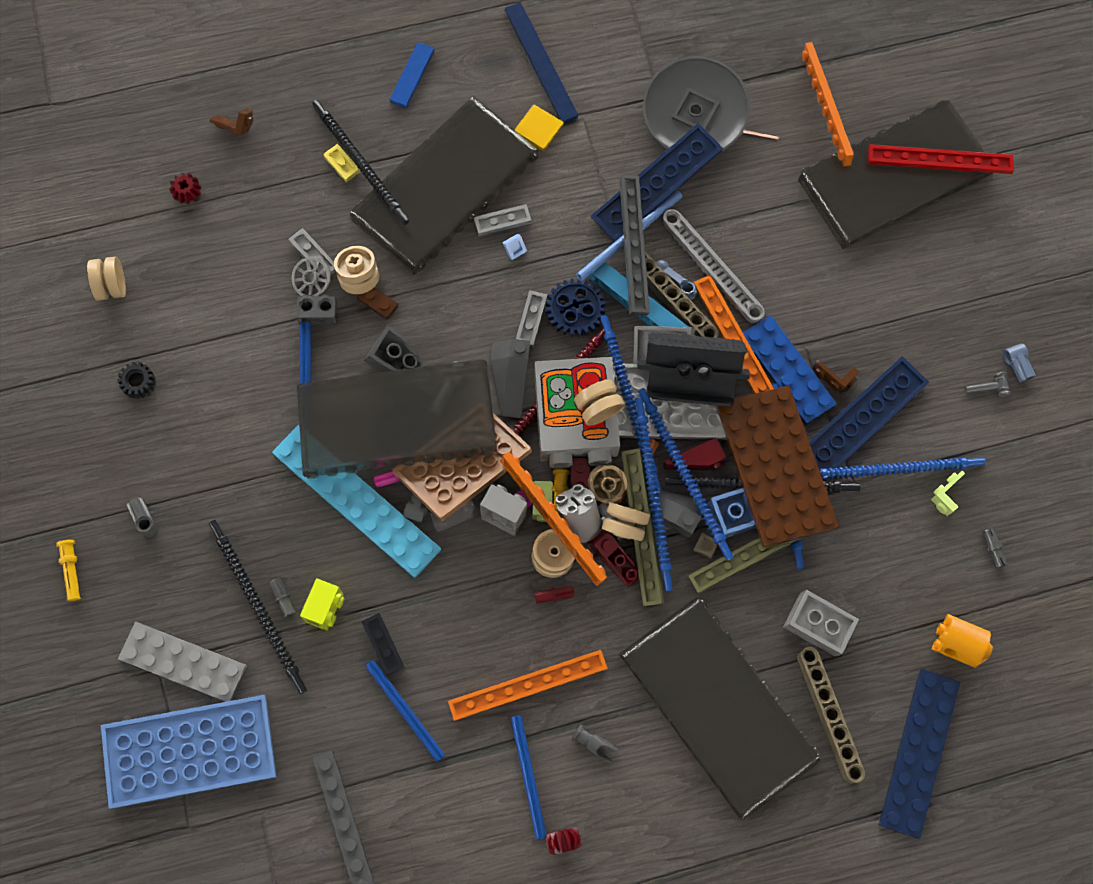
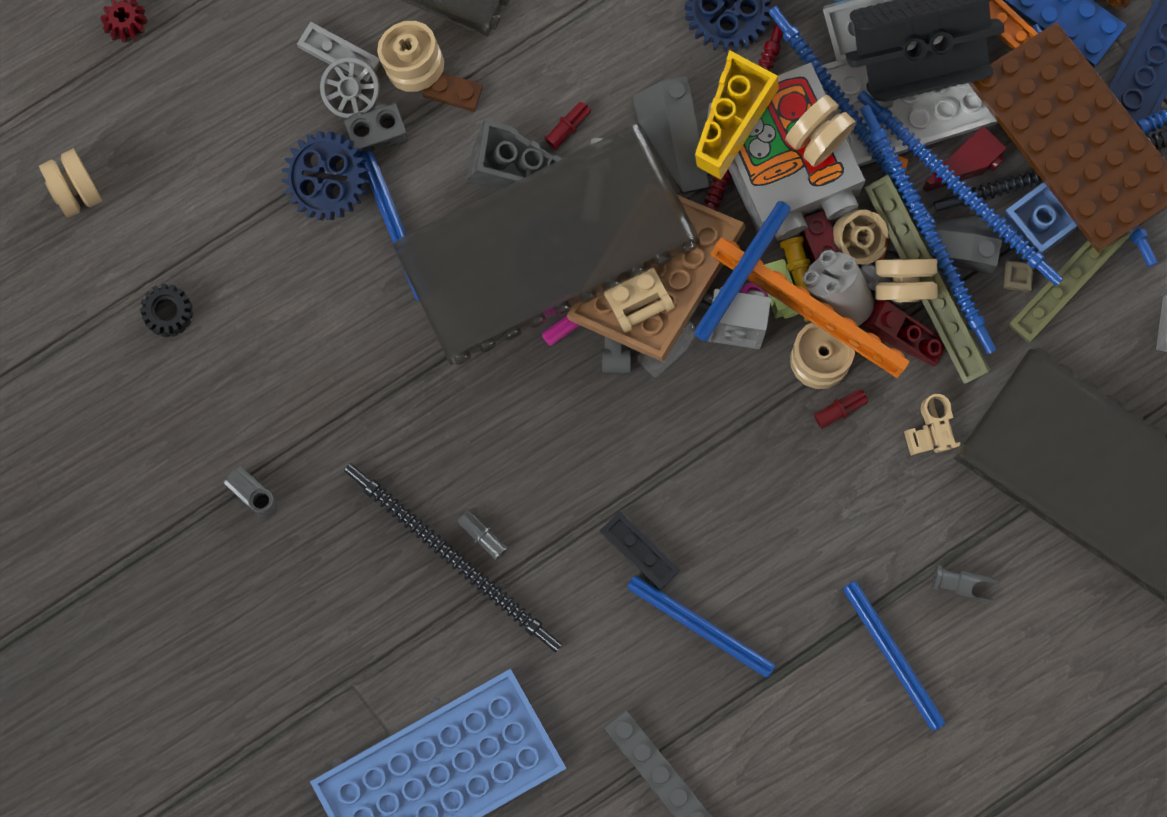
camera: 15 degrees left, 5 degrees up
(68, 561) = (175, 584): yellow pin -> none
(182, 662) = (382, 664): light grey plate -> none
(279, 312) = (328, 151): none -> dark blue gear
(322, 605) = (541, 525): neon yellow brick -> none
(365, 511) = (543, 381): medium azure plate -> none
(441, 470) = (635, 294): none -> tan plate
(443, 347) = (567, 125): none -> dark red axle
(513, 478) = (742, 271): none -> blue axle
(527, 685) = (850, 538): orange plate -> none
(531, 317) = (673, 42): light grey plate -> none
(547, 371) = (735, 110): none -> yellow wedge
(563, 841) = (970, 720): dark red gear -> none
(611, 634) = (938, 434): none -> tan piece

